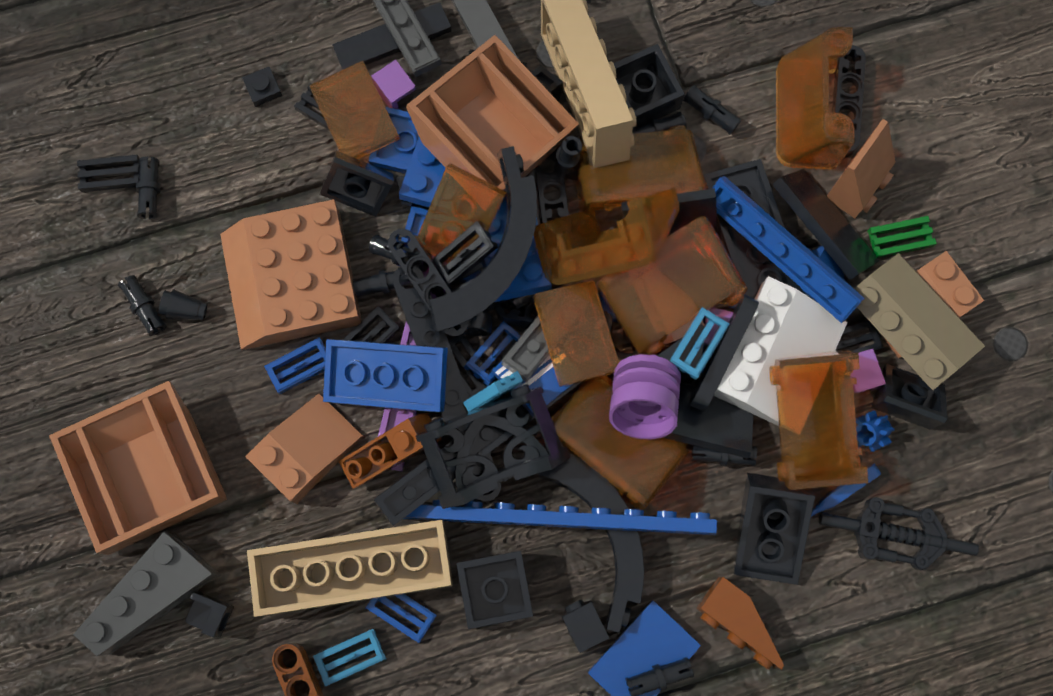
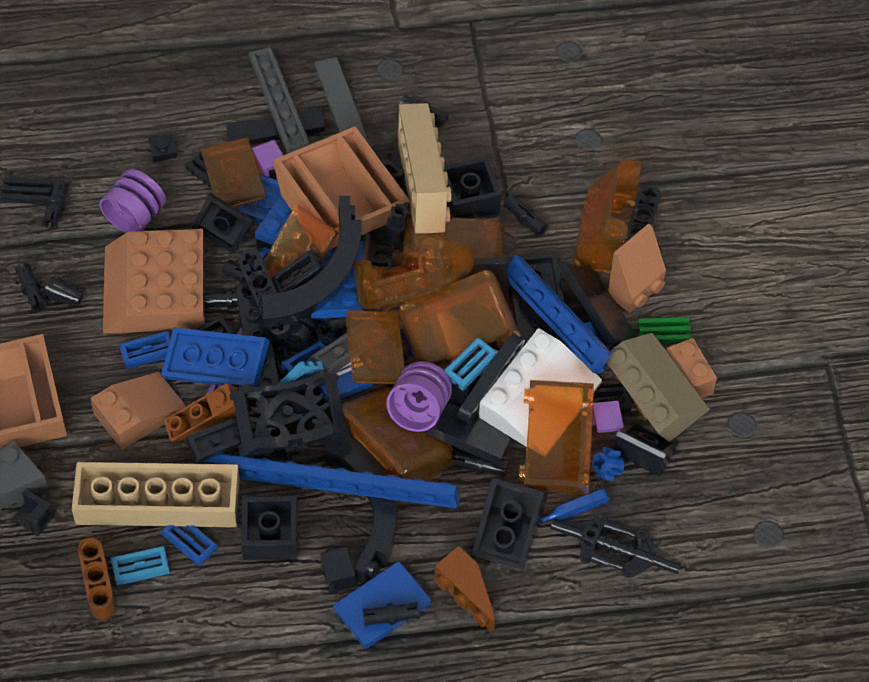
camera: 10 degrees right, 20 degrees down
(242, 171) = (132, 201): none -> medium lavender wheel

